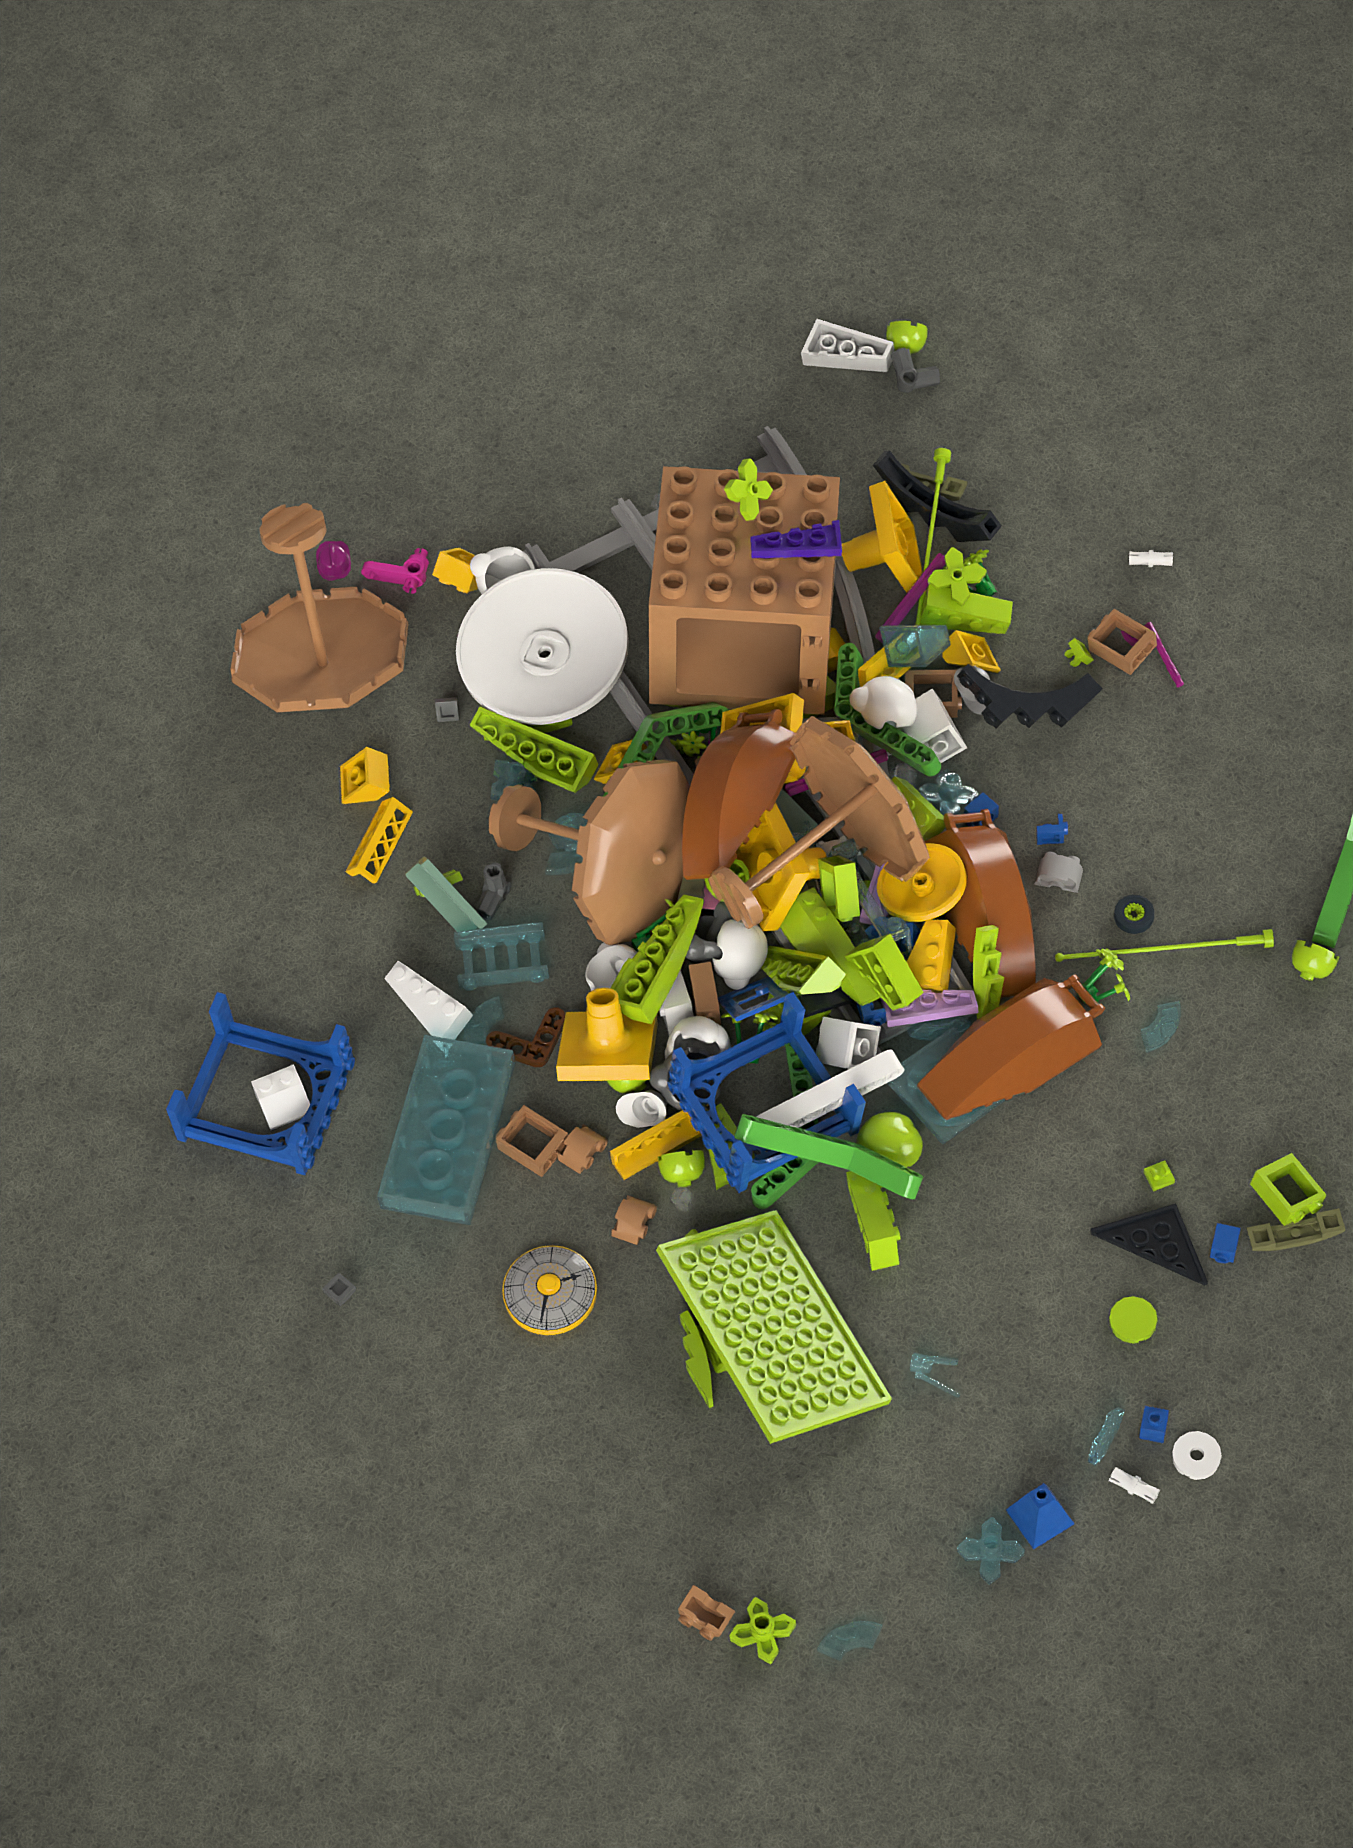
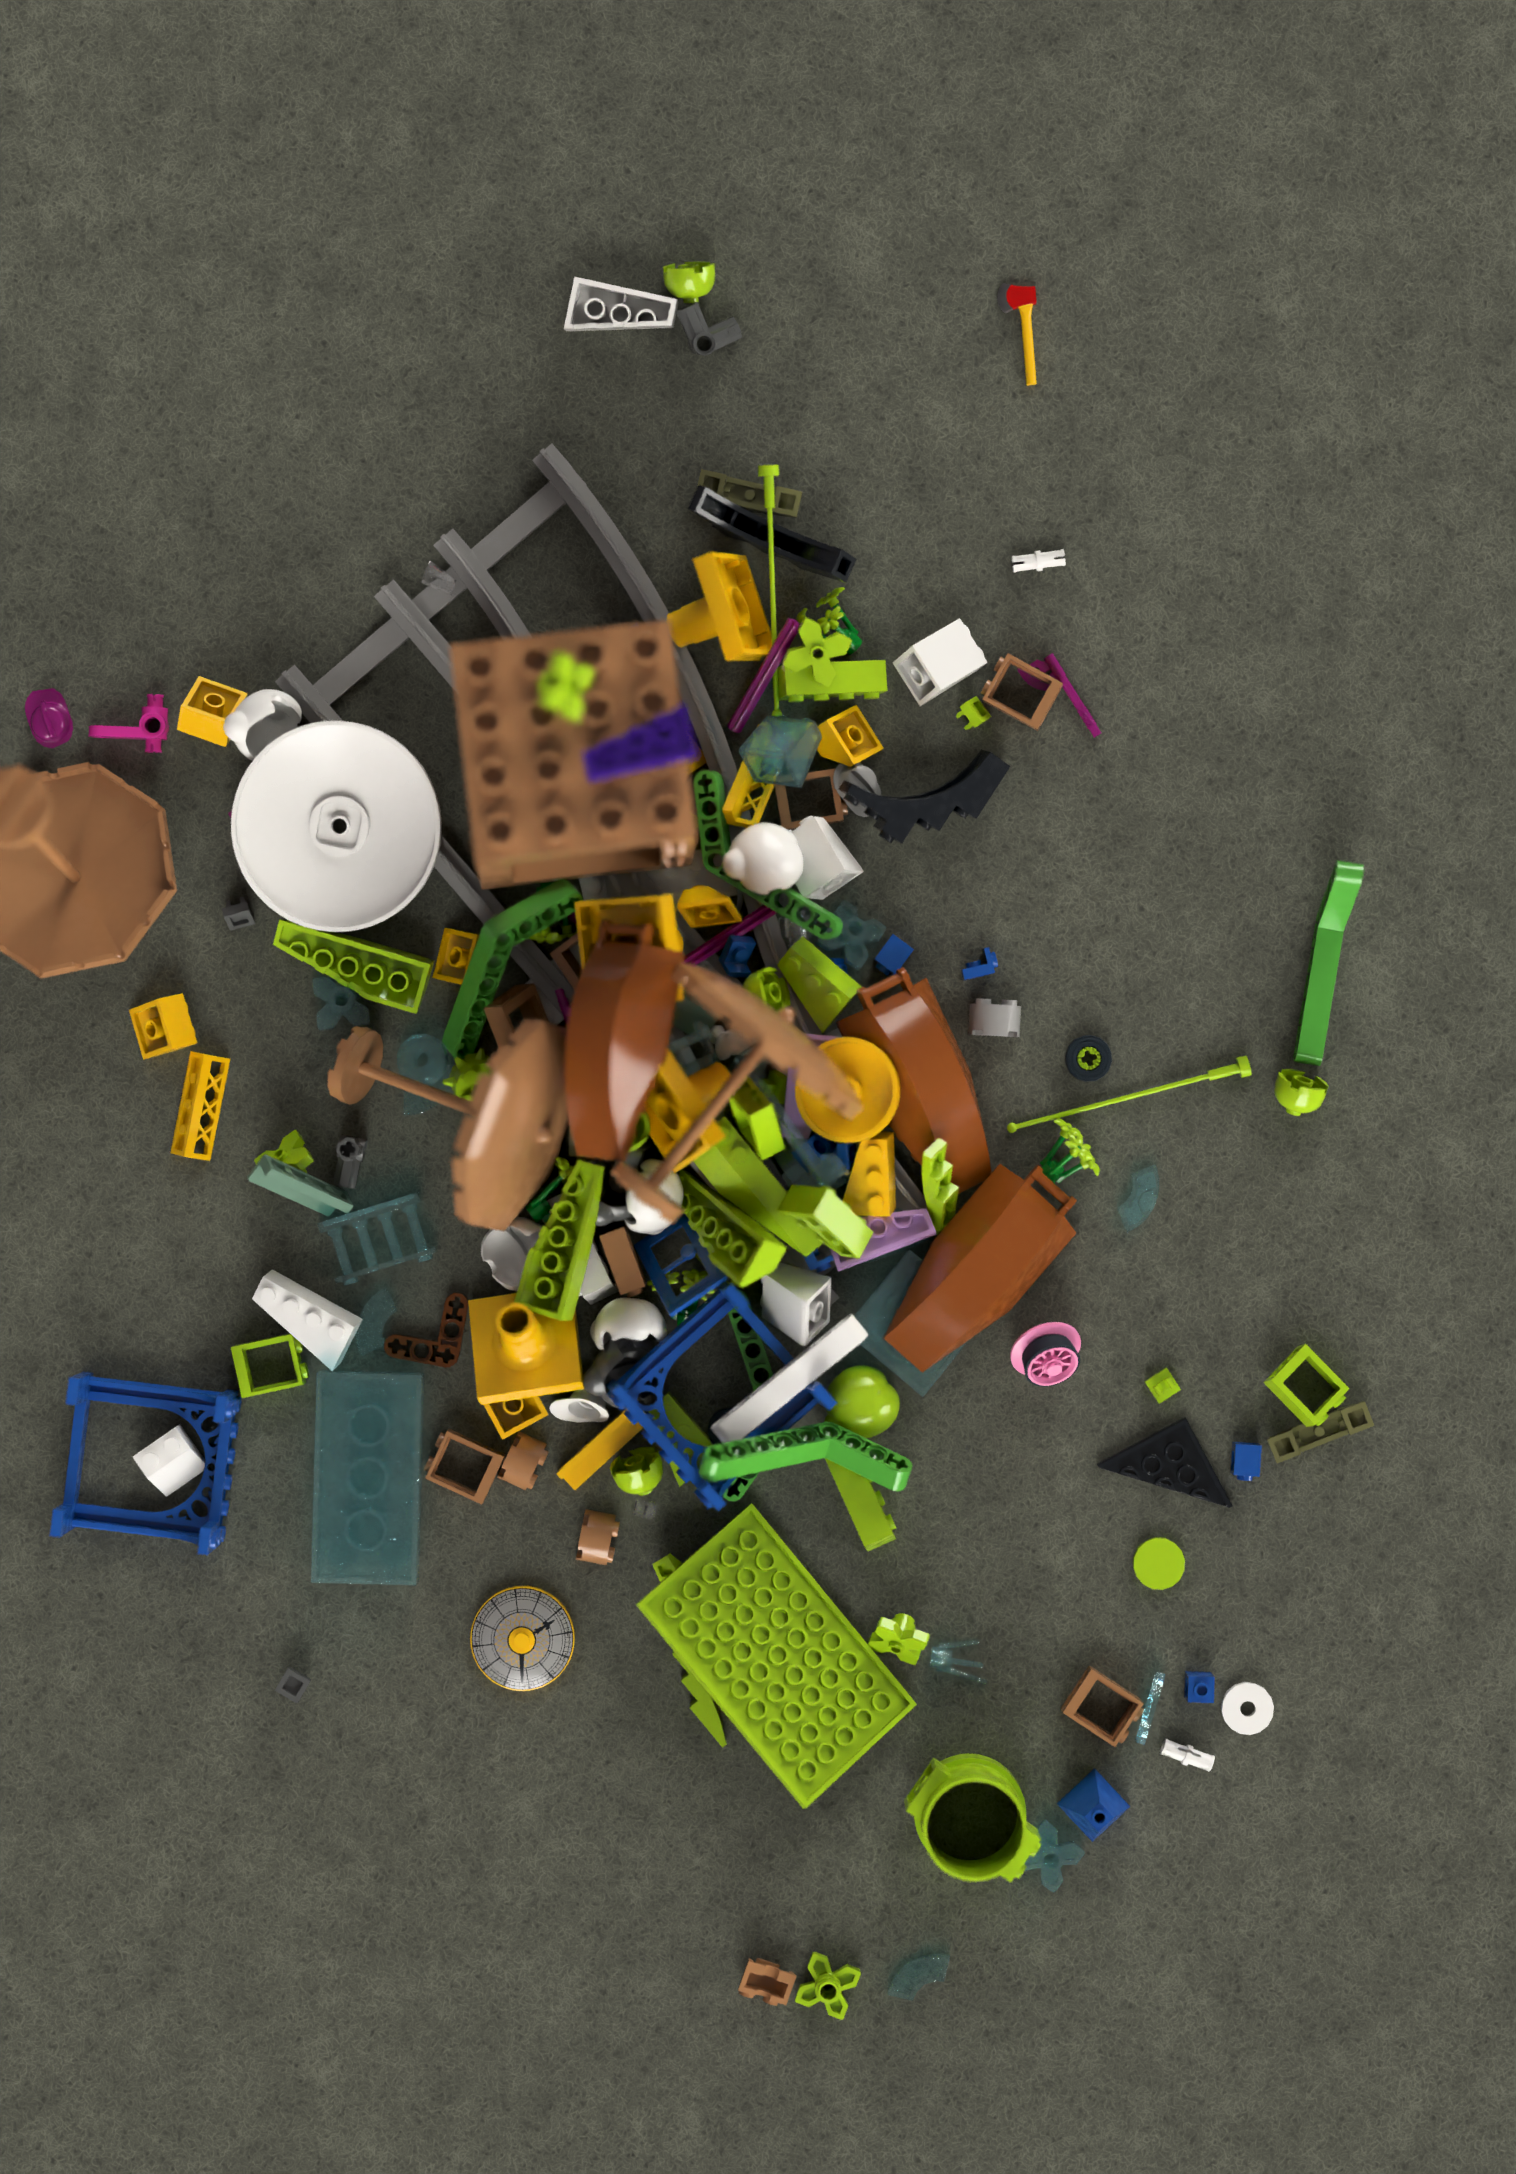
camera: 20 degrees left, 30 degrees up
(385, 1020) = (243, 1369): none -> lime window
(585, 1100) = (515, 1414): none -> yellow slope
(885, 1335) = (899, 1638): none -> lime plant
(918, 1528) = (964, 1768): none -> lime cylinder
(1045, 1410) = (1079, 1693): none -> medium nougat window
(1056, 612) = (939, 661): none -> white slope
(1058, 1122) = (1047, 1353): none -> bright pink piece
(1168, 388) = (1022, 298): none -> piece

